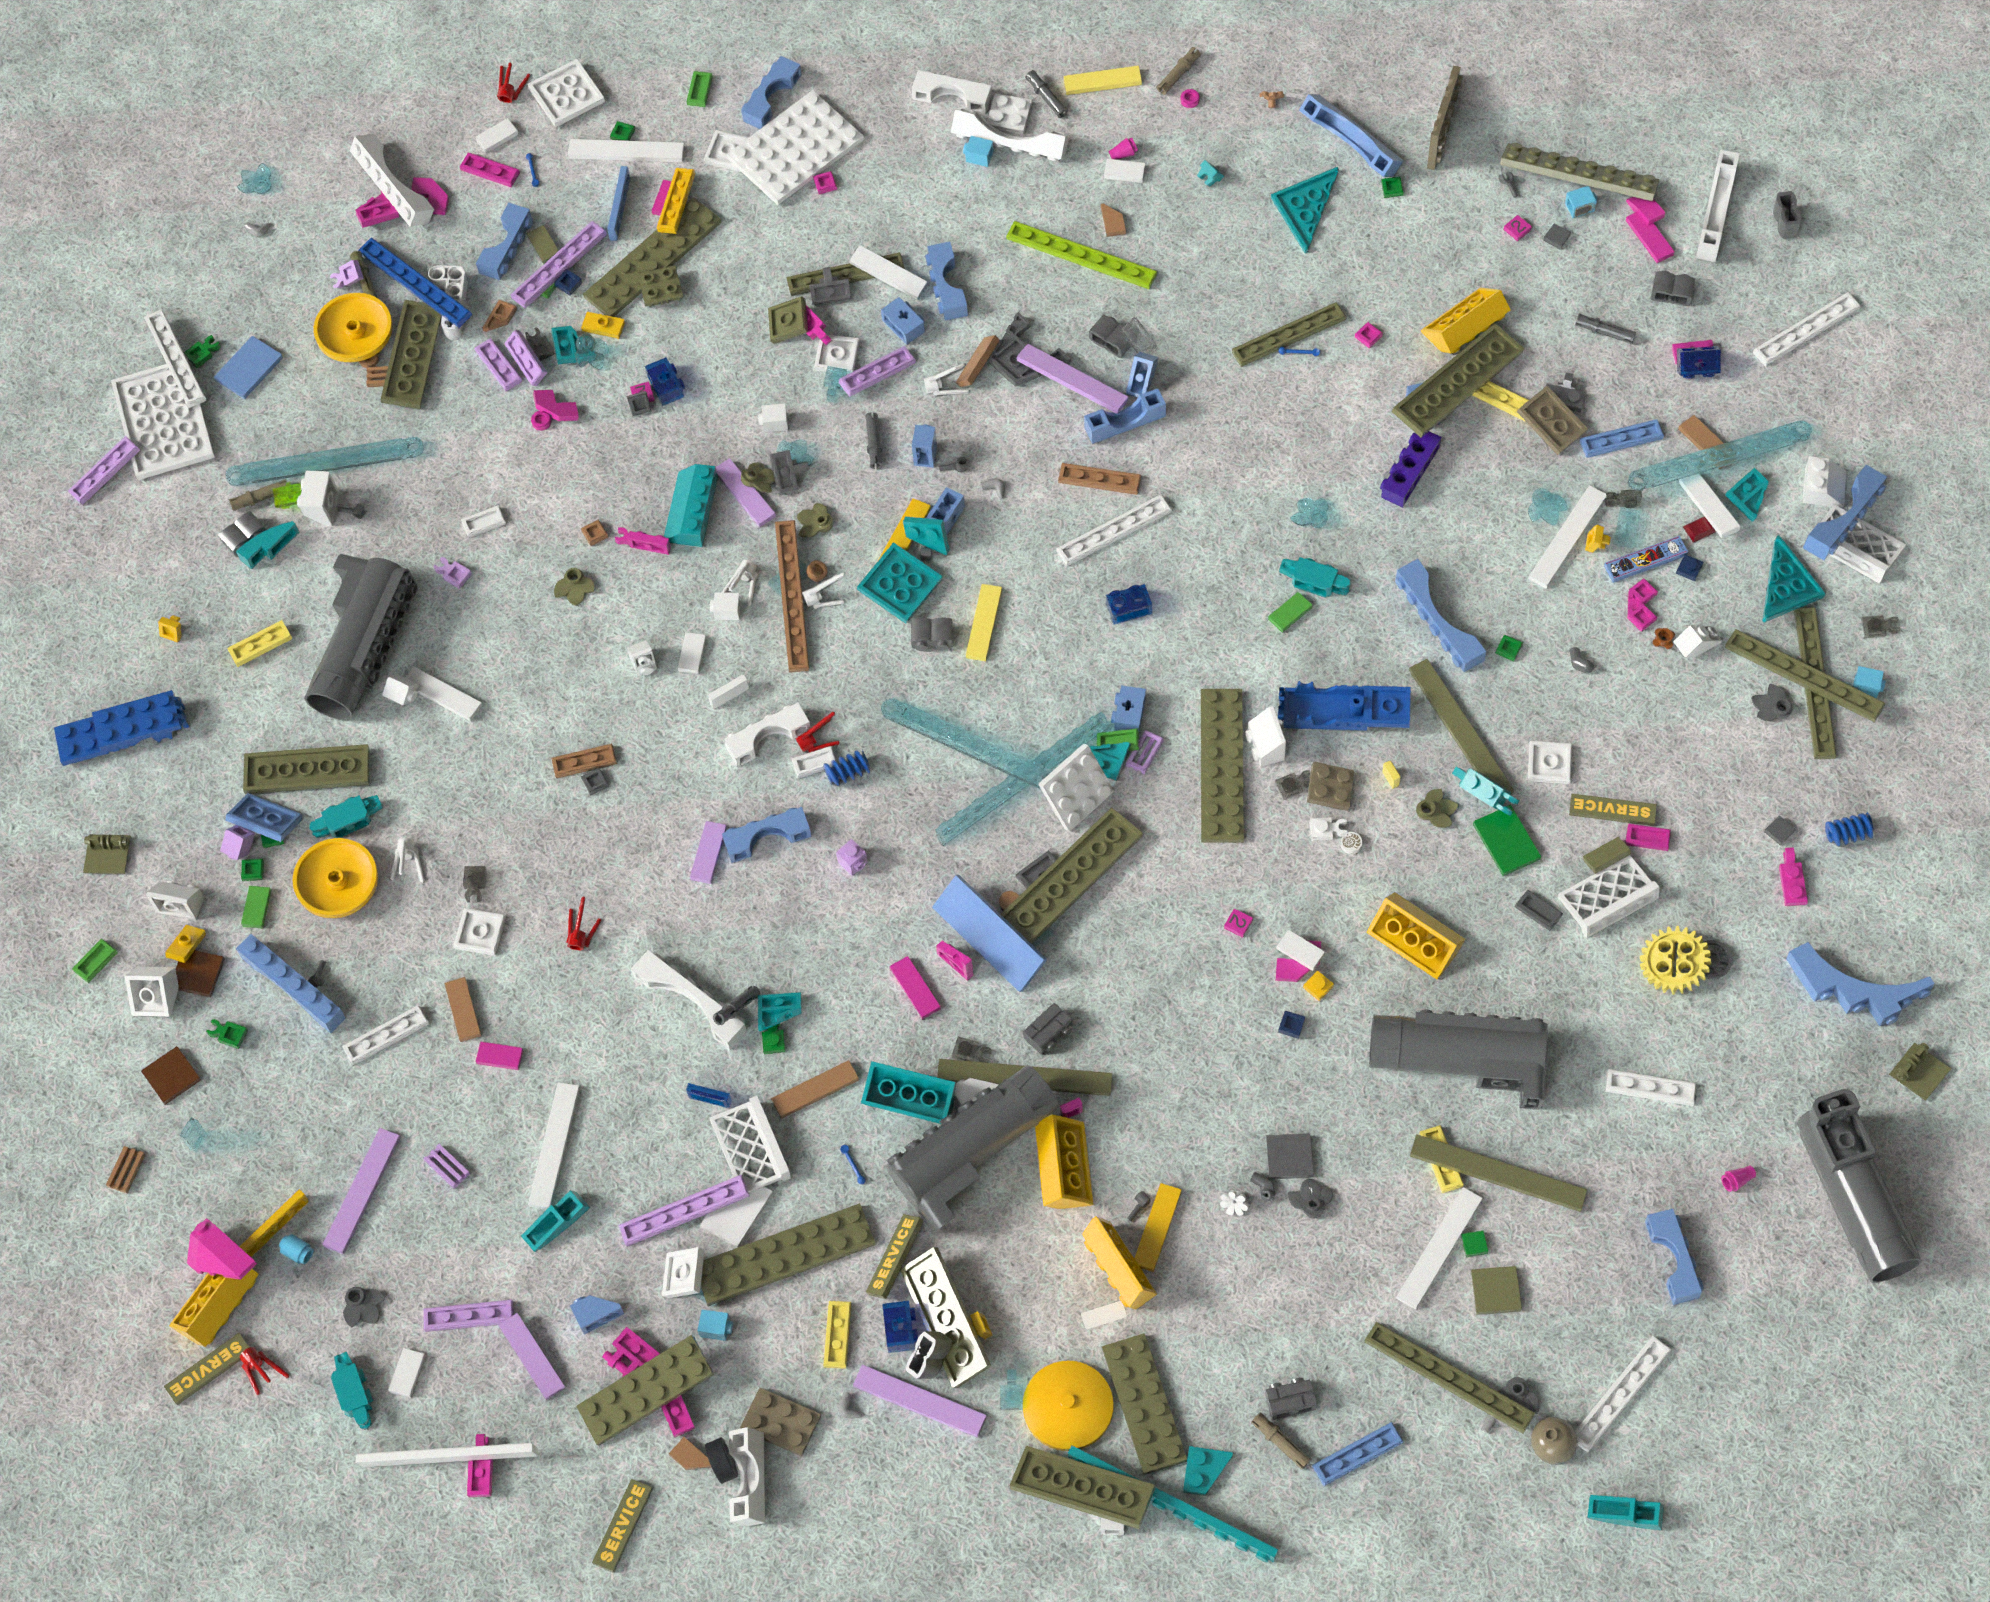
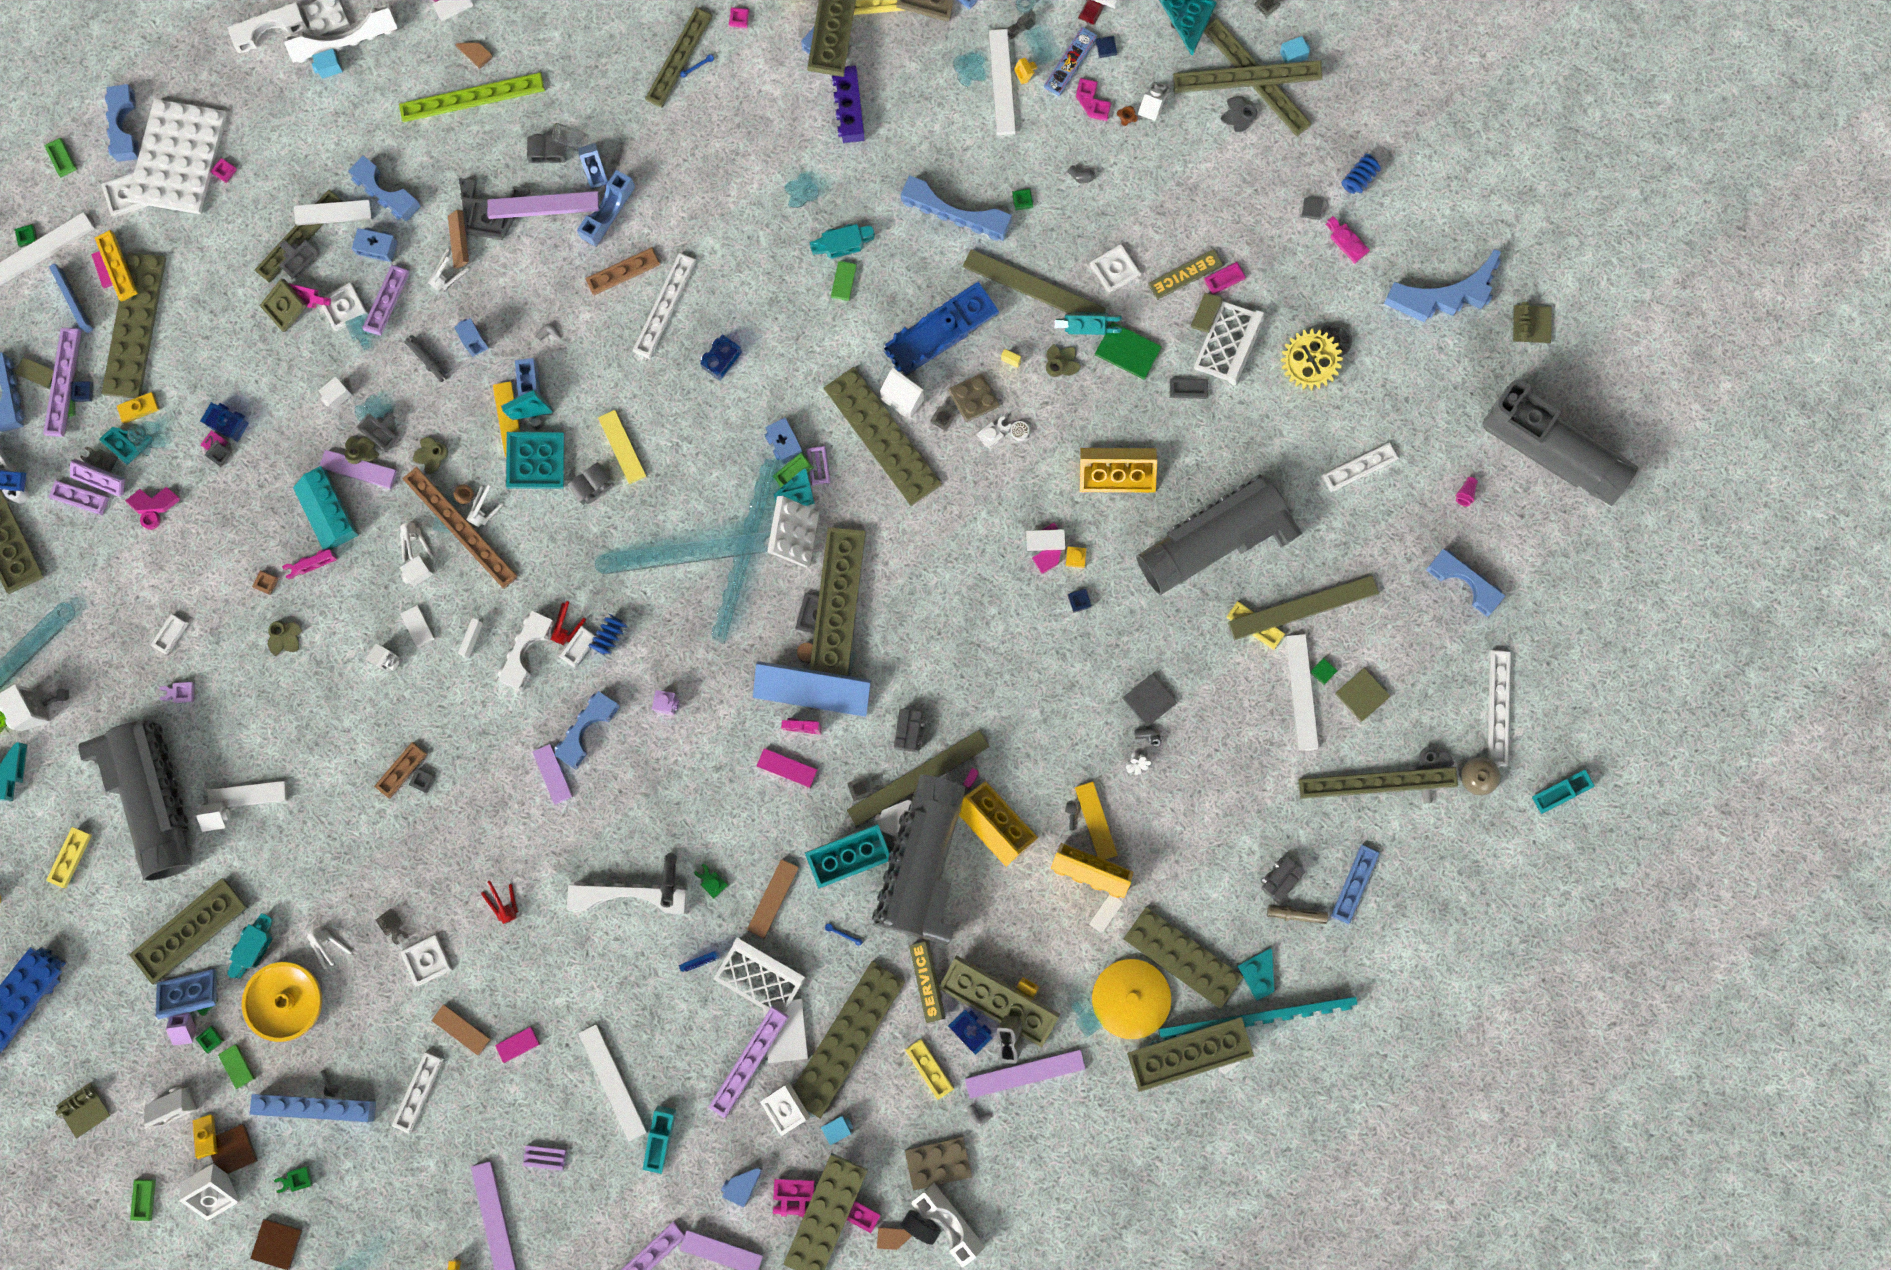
camera: 35 degrees left, 15 degrees up
(499, 316) = (48, 456): medium nougat tile -> none
(660, 286) = (159, 345): olive hinge -> none
(778, 1008) = (699, 859): teal wing -> none
(960, 468) = (505, 336): dark grey hand -> none
(1238, 922) = (984, 550): dark pink tile -> none
(1310, 1195) = (1184, 720): dark grey plate -> none

